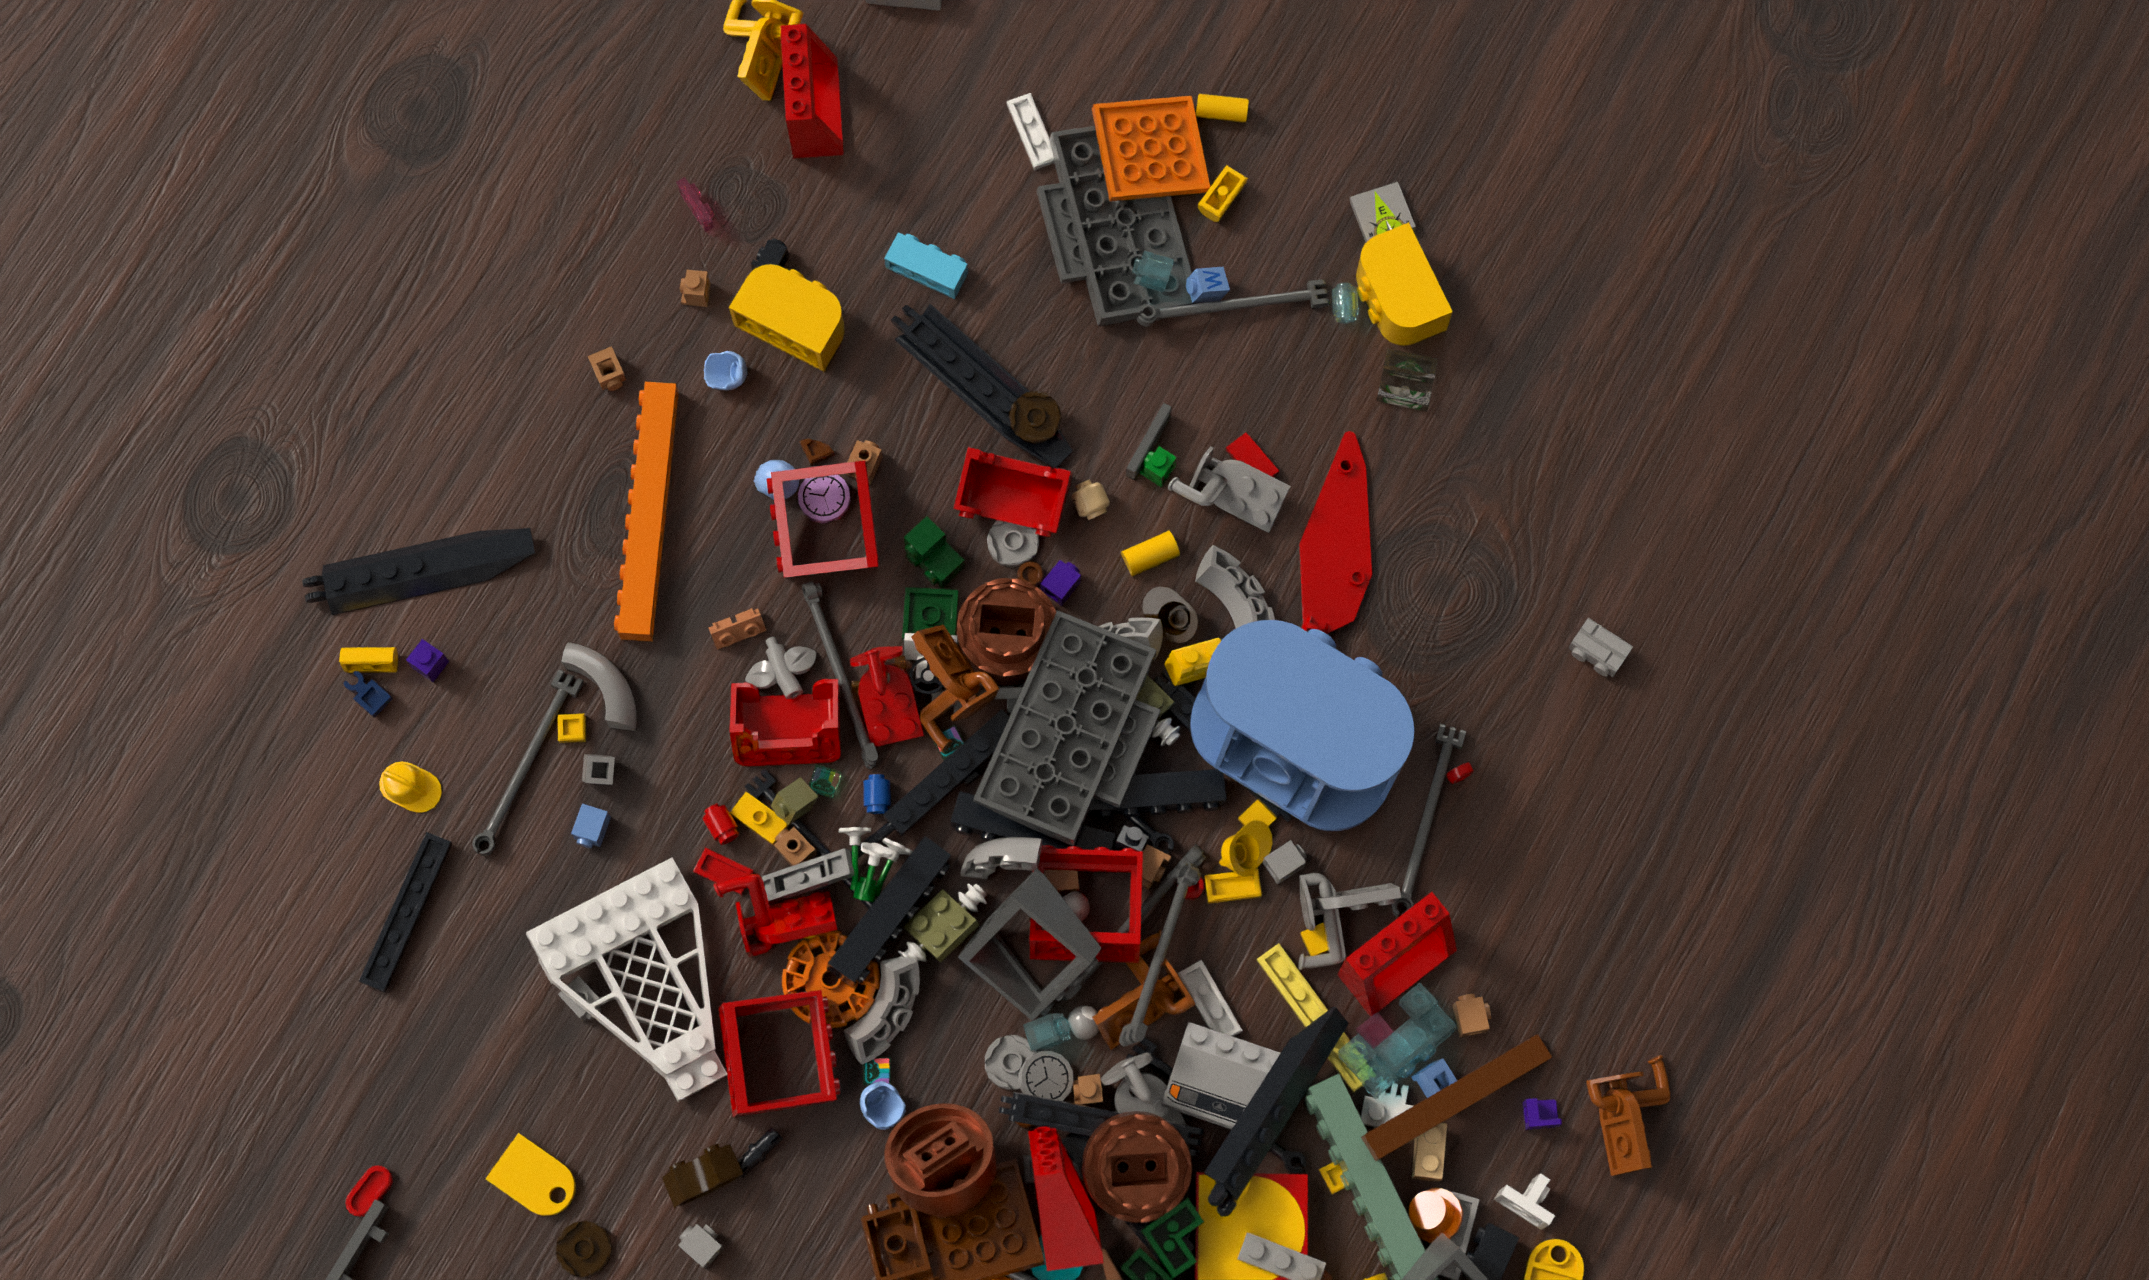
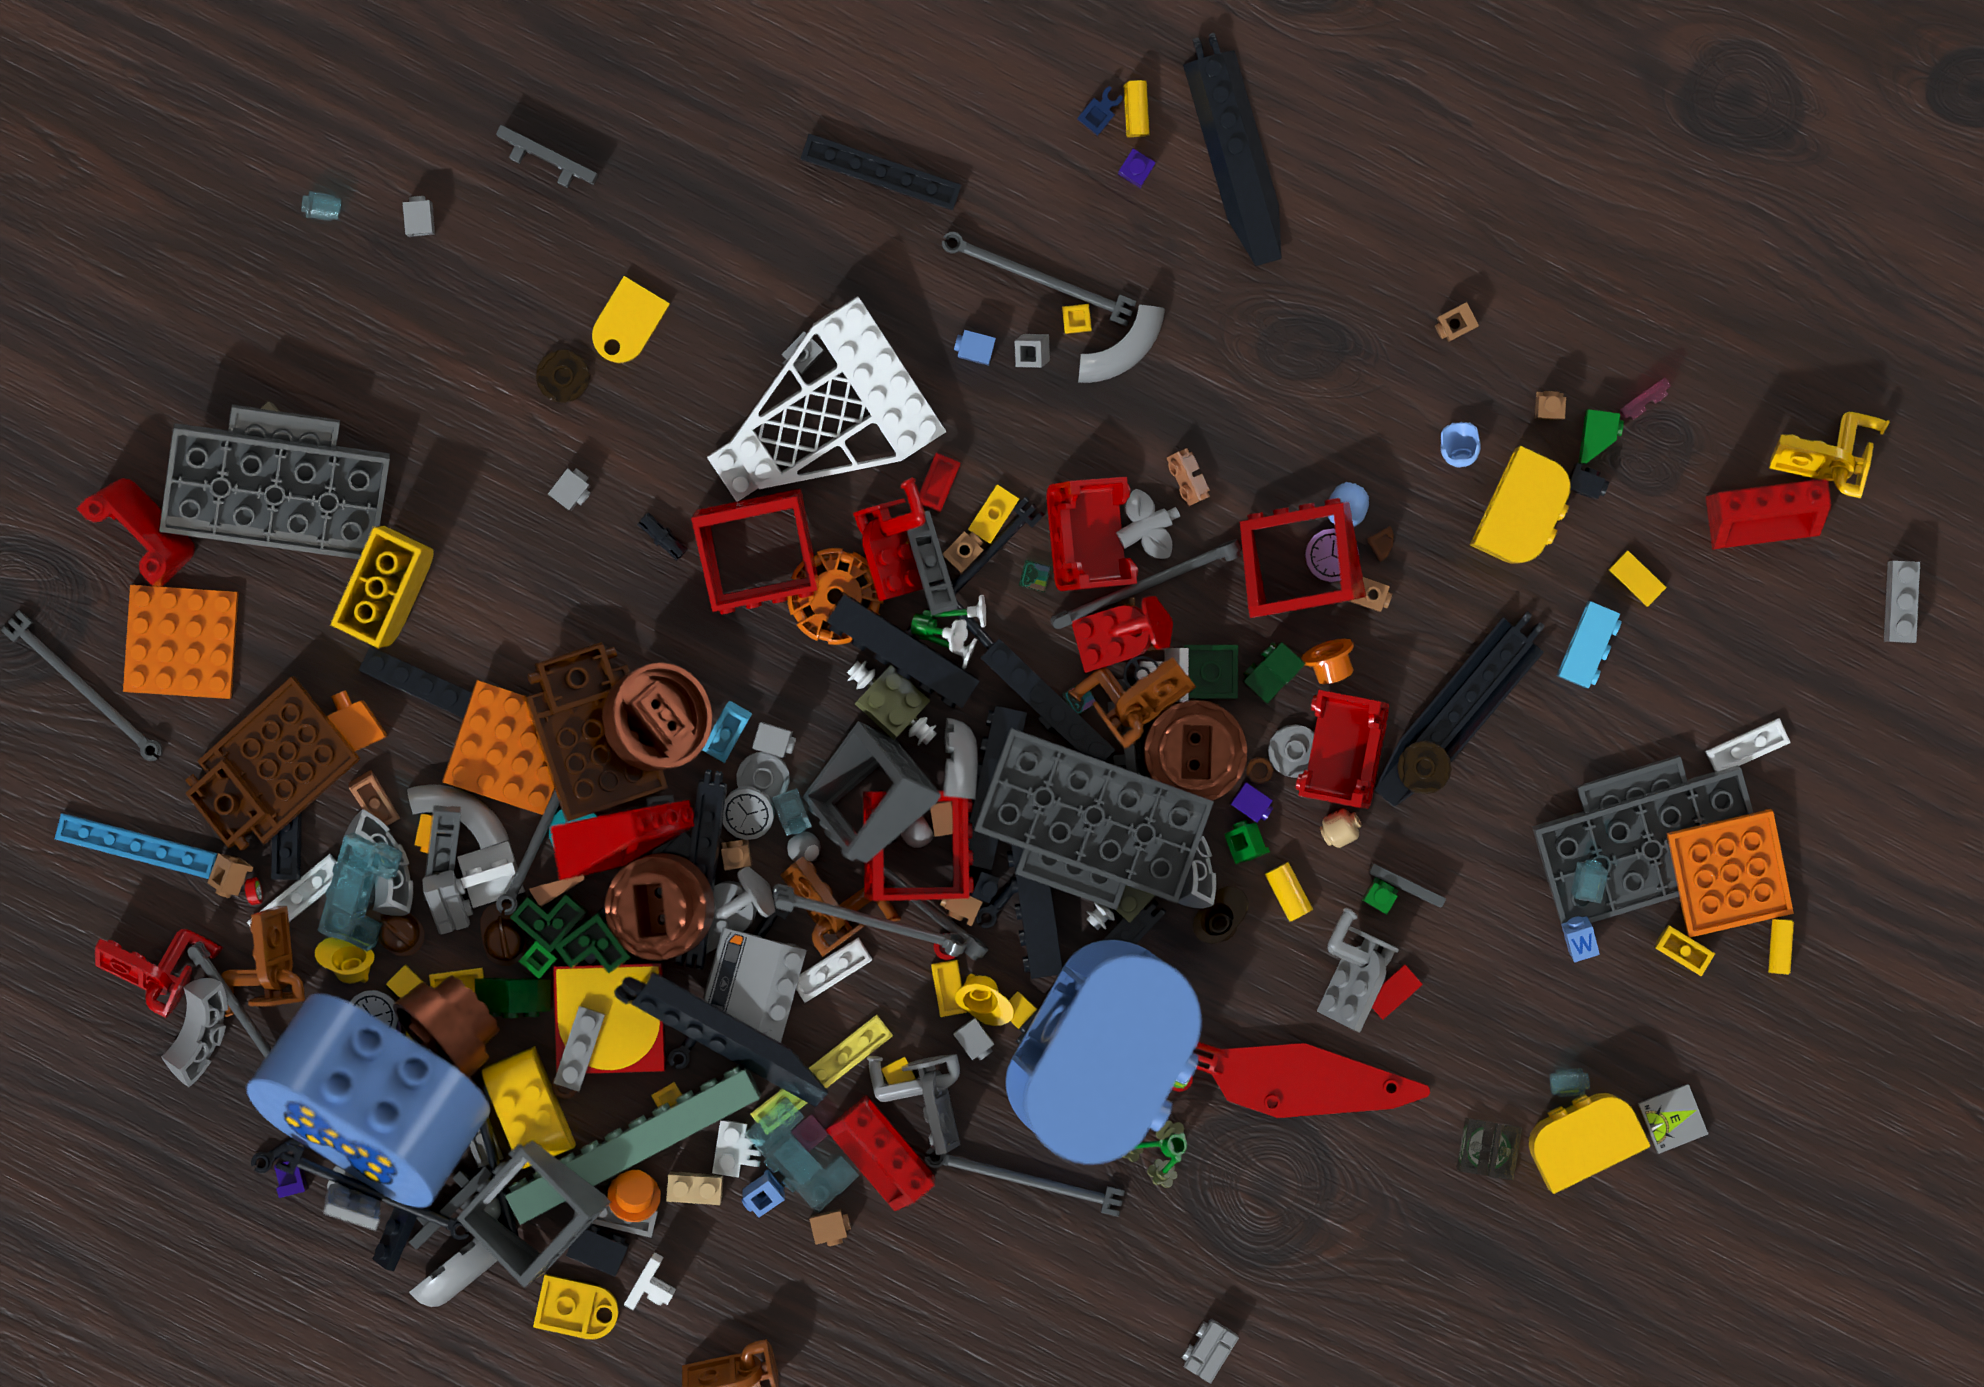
camera: 90 degrees right, 15 degrees up
(371, 1186) = (607, 164): red tile -> none
(410, 787) = (1008, 162): yellow piece -> none
(648, 511) = (1307, 377): orange brick -> none
(702, 1175) = (636, 485): dark brown brick -> none
(720, 824) = (984, 476): red brick -> none
(724, 247) = (1598, 433): none -> green slope
(794, 801) = (1009, 548): olive brick -> none
(866, 220) = (1637, 578): none -> yellow tile
(877, 794) = (1022, 629): blue brick -> none
(877, 1070) = (747, 647): tile -> none
(882, 1105) = (712, 655): light blue hair -> none
(889, 1011) = (803, 655): light grey brick -> none
(926, 498) = (1330, 660): none -> orange piece
(954, 1090) = (727, 731): none -> medium azure slope
(972, 1045) = (774, 740): none -> light grey brick
(1108, 592) = (1245, 842): none -> green brick
(1190, 662) = (1172, 942): yellow brick -> none
(1233, 587) = (1247, 985): light grey brick -> none
(1311, 294) = (1562, 973): dark grey hinge -> none
(1397, 669) = (1172, 1145): none -> plant
(1456, 1097) = (745, 1214): reddish brown tile -> none
(1460, 773) = (1073, 1211): red tile -> none
(1540, 1114) = (737, 1296): dark purple panel -> none

